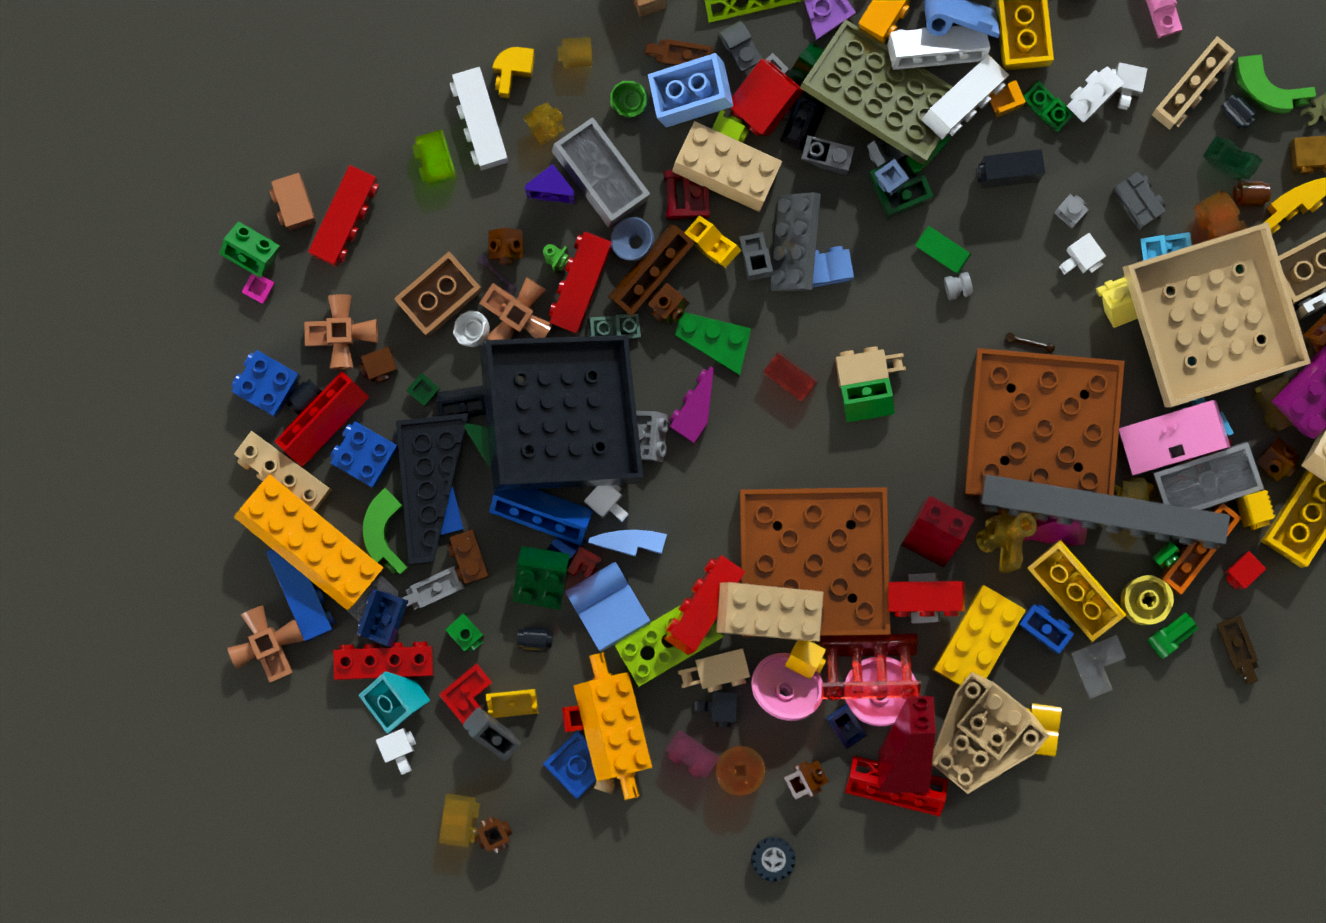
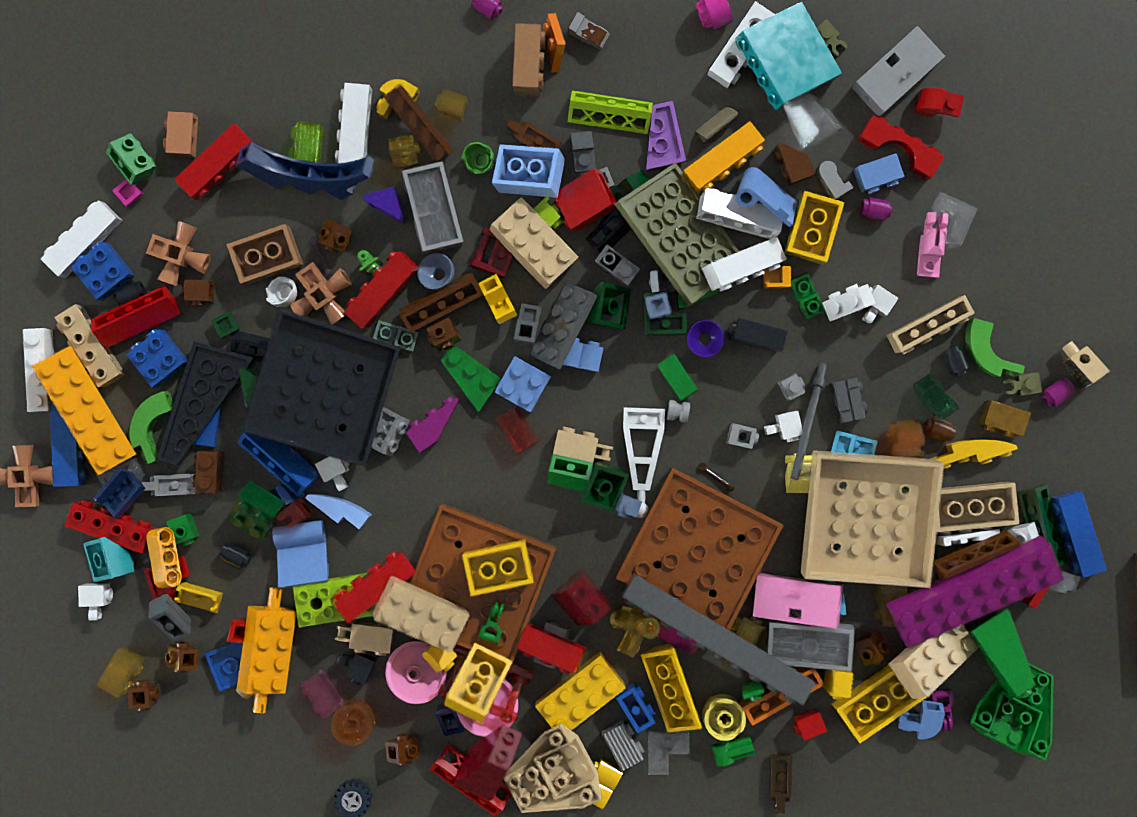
camera: 20 degrees right, 5 degrees up
(227, 358) = (86, 232): none -> white brick
(229, 501) = (37, 347): none -> white brick
(451, 191) = (279, 170): none -> dark blue arch
(459, 669) = (171, 564): none -> light orange beam
(521, 774) = (181, 657): none -> reddish brown brick
(549, 86) = (418, 122): none -> reddish brown fence
(776, 324) = (522, 384): none -> medium blue brick
(833, 528) = (498, 567): none -> yellow brick
(838, 202) = (610, 306): none -> dark green slope
(851, 578) = (496, 610): none -> green piece
(863, 662) = (478, 683): none -> yellow brick
(912, 398) = (604, 486): none -> dark green slope
(924, 310) = (643, 419): none -> white plate
(943, 411) = (627, 506): none -> sand blue brick
(961, 184) = (716, 335): none -> dark purple piece
(1048, 677) = (623, 745): none -> light grey brick
(1049, 281) = (733, 436): none -> light grey brick
(1099, 196) = (817, 384): none -> dark grey bar

